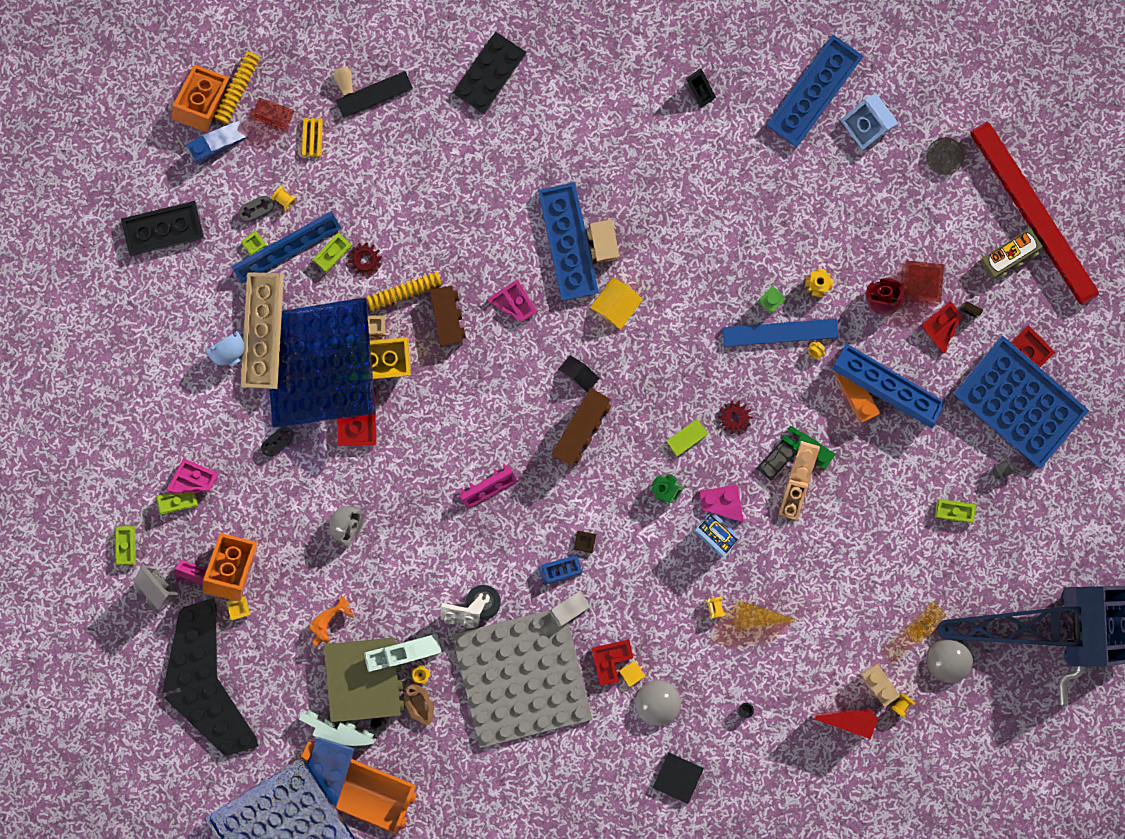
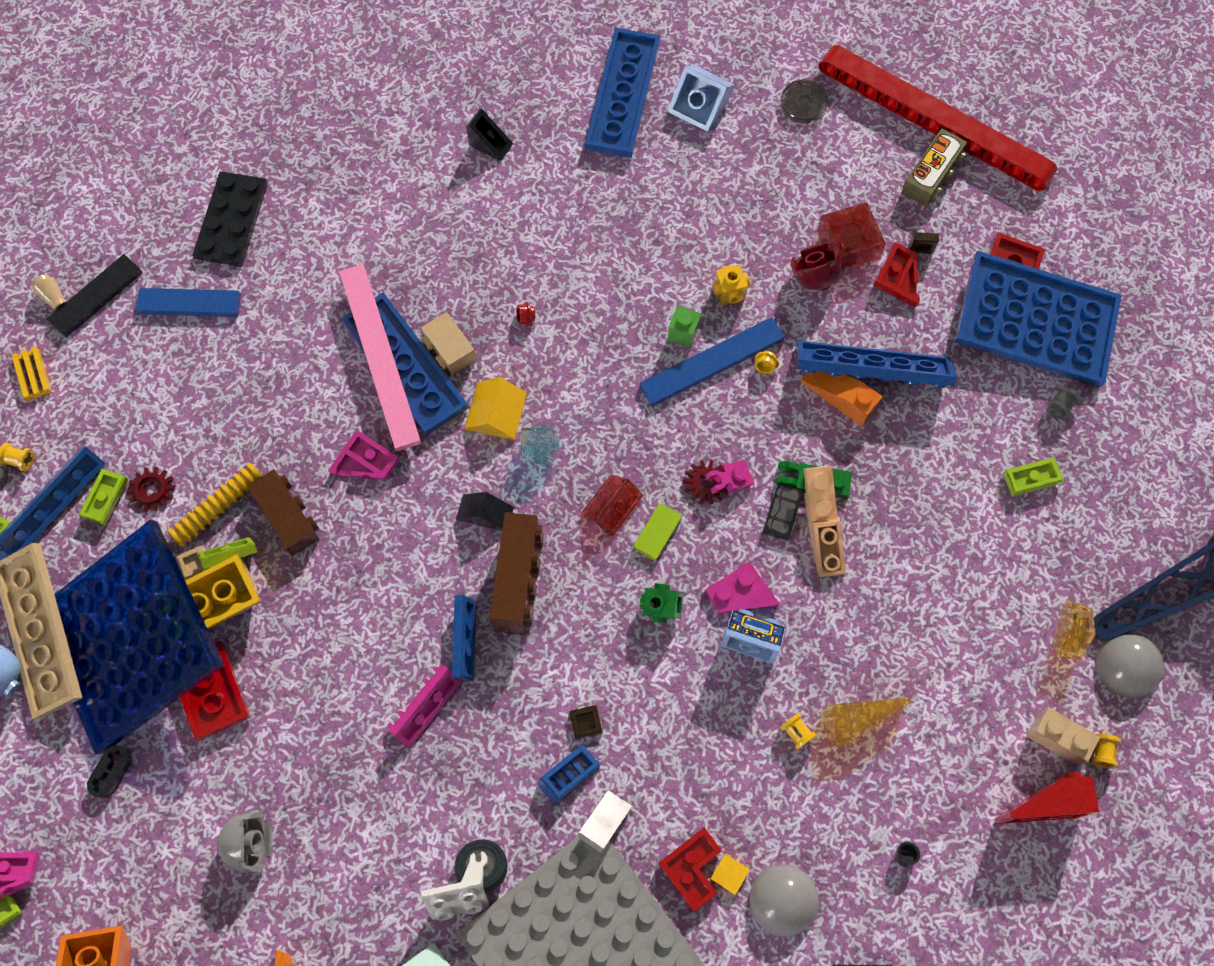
camera: 25 degrees left, 15 degrees down
(400, 330) = (218, 554): none -> lime plate
(437, 128) = (188, 302): none -> blue tile
(530, 454) = (464, 638): none -> blue tile
(553, 231) = (380, 358): none -> bright pink tile
(634, 343) = (538, 444): none -> clear light blue brick
(665, 405) = (612, 504): none -> clear red panel
(666, 240) = (525, 314): none -> red plate
(753, 422) = (732, 476): none -> dark pink plate

